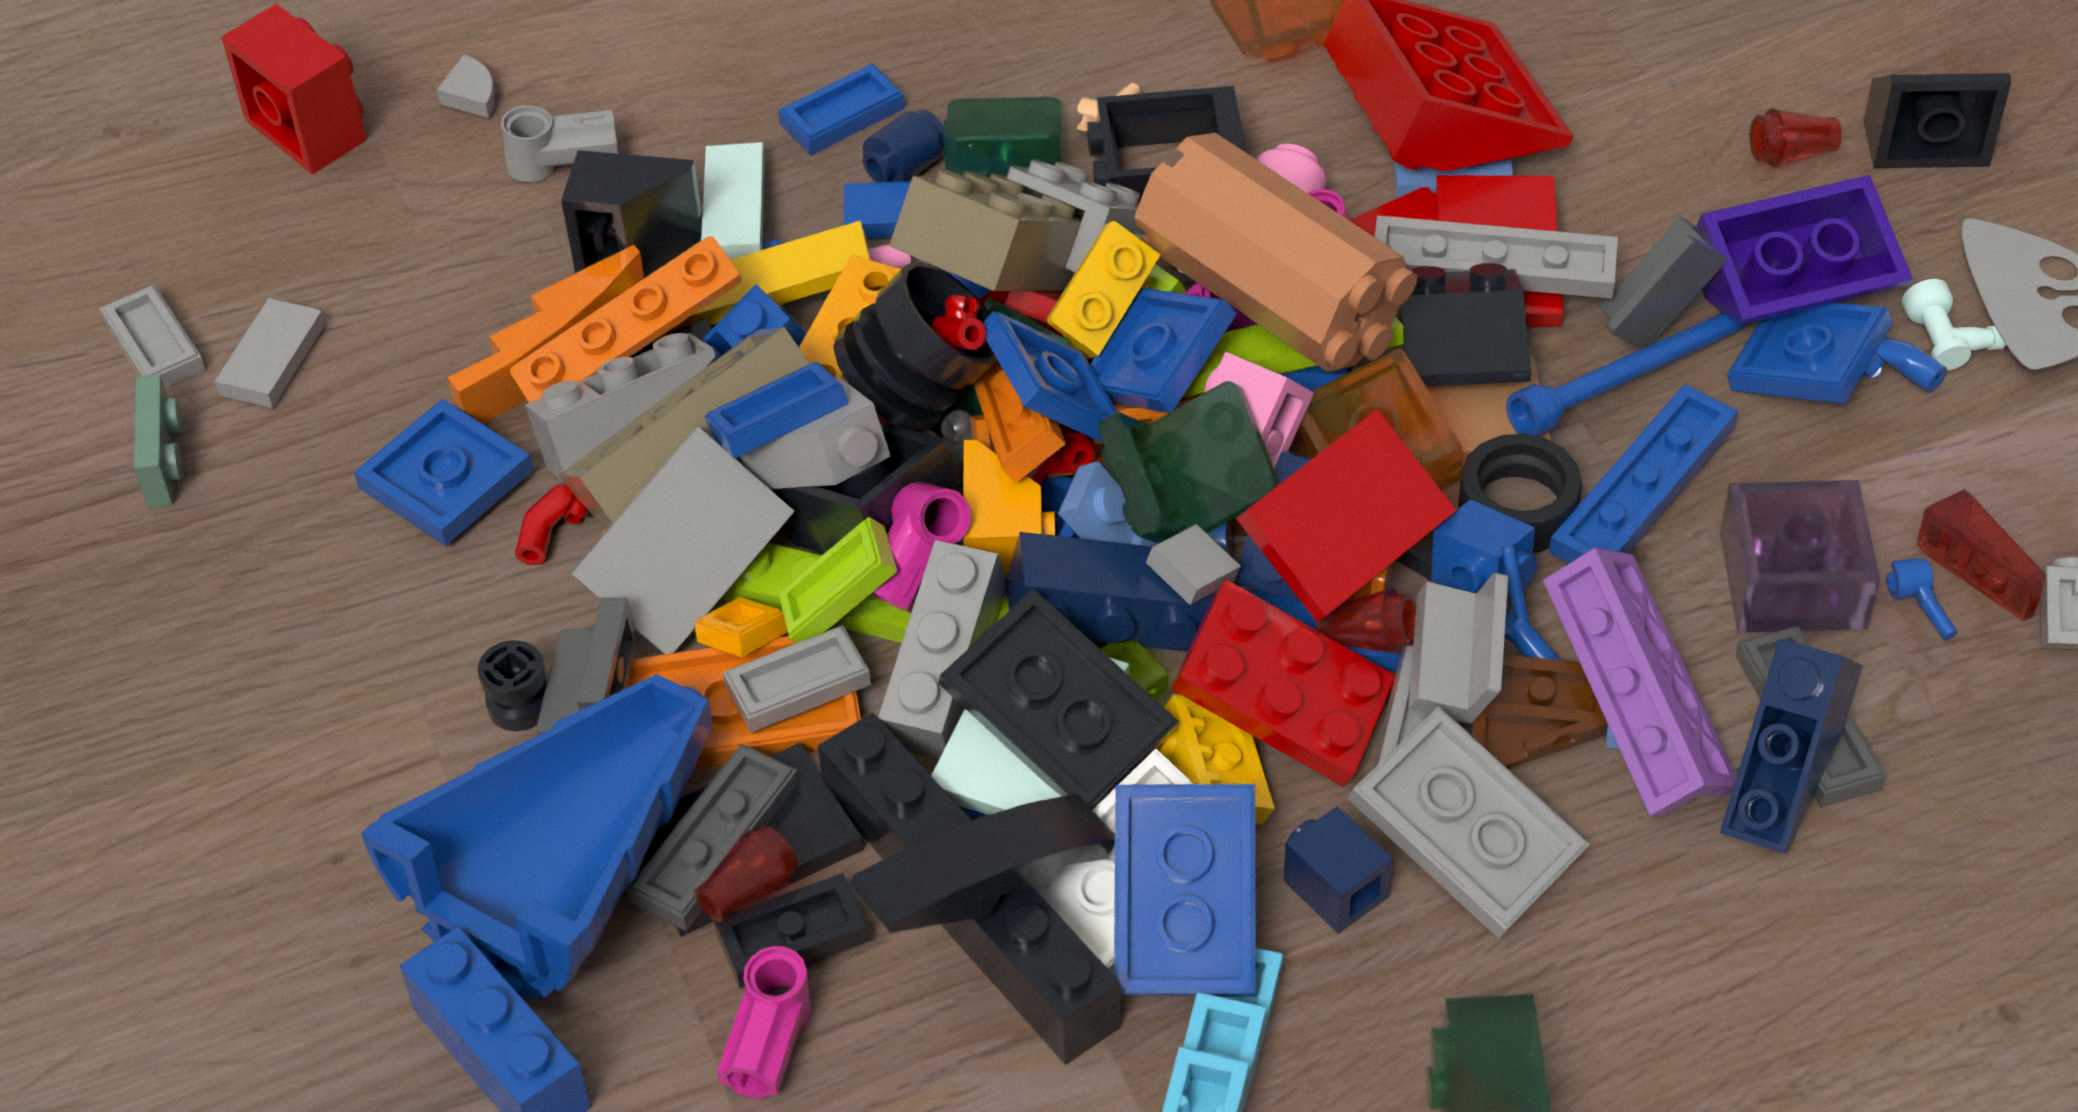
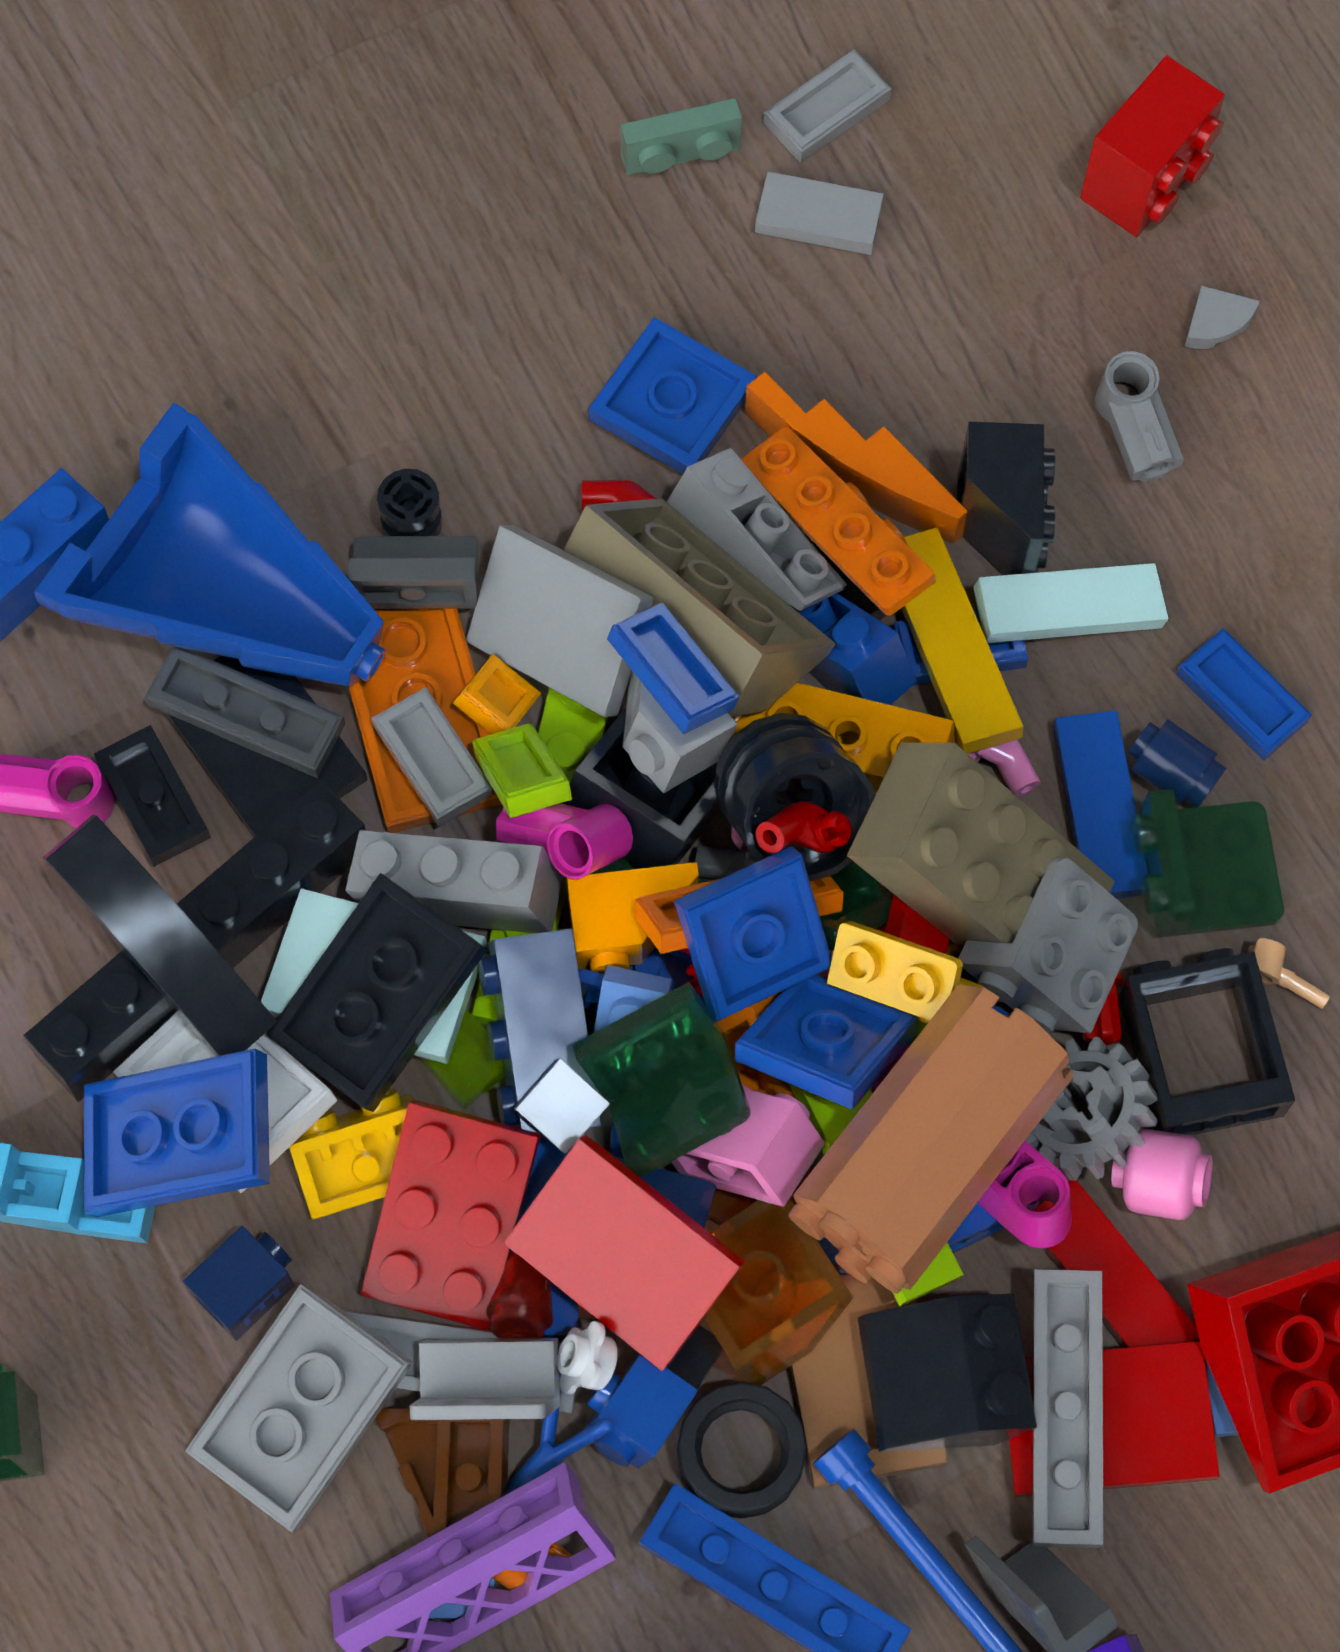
camera: 80 degrees right, 20 degrees up
(748, 872) = (191, 745): clear red cone -> none
(1445, 552) = (586, 1359): none -> white plate

